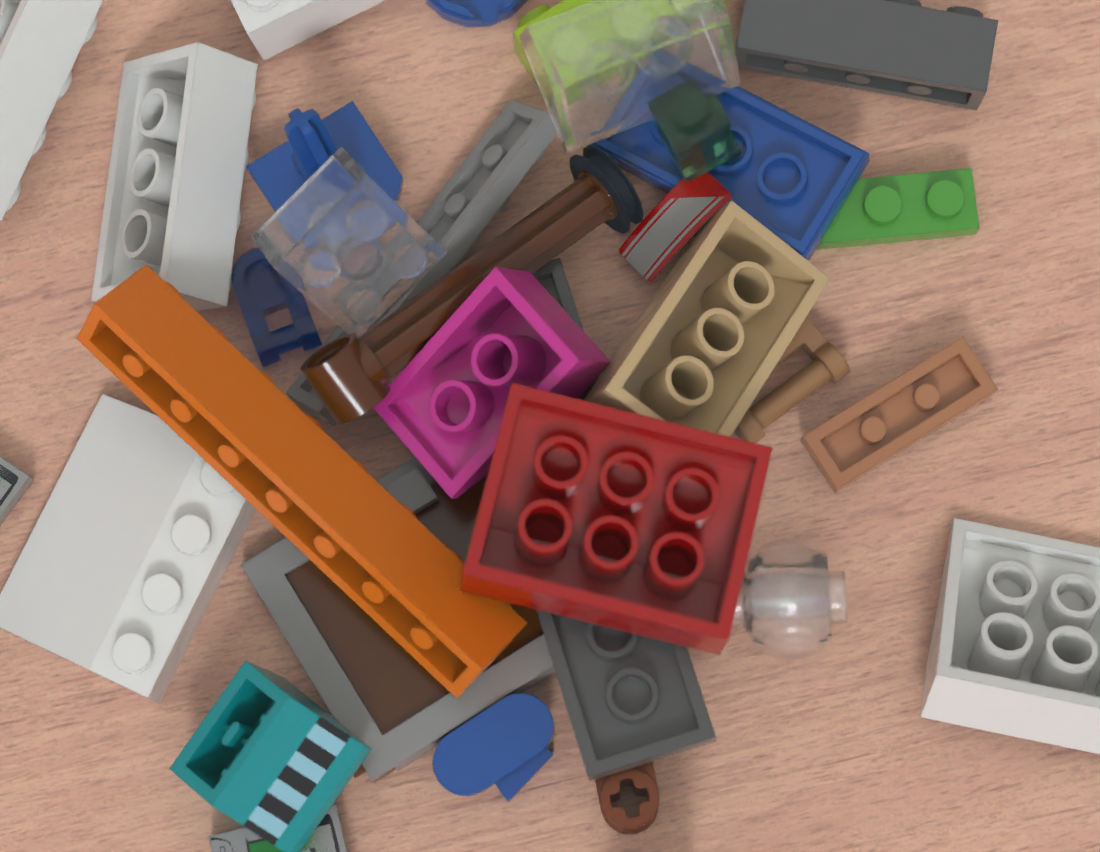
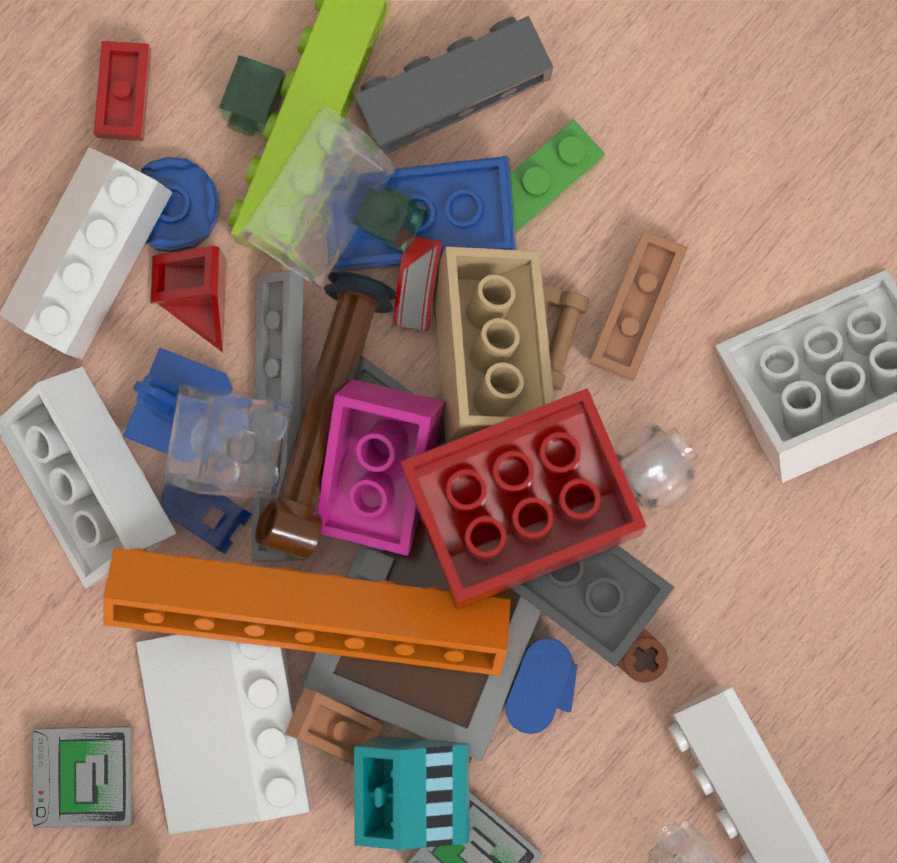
camera: 40 degrees left, 5 degrees up
(238, 622) = (331, 725): none -> nougat plate
(434, 67) = (193, 289): none -> red slope

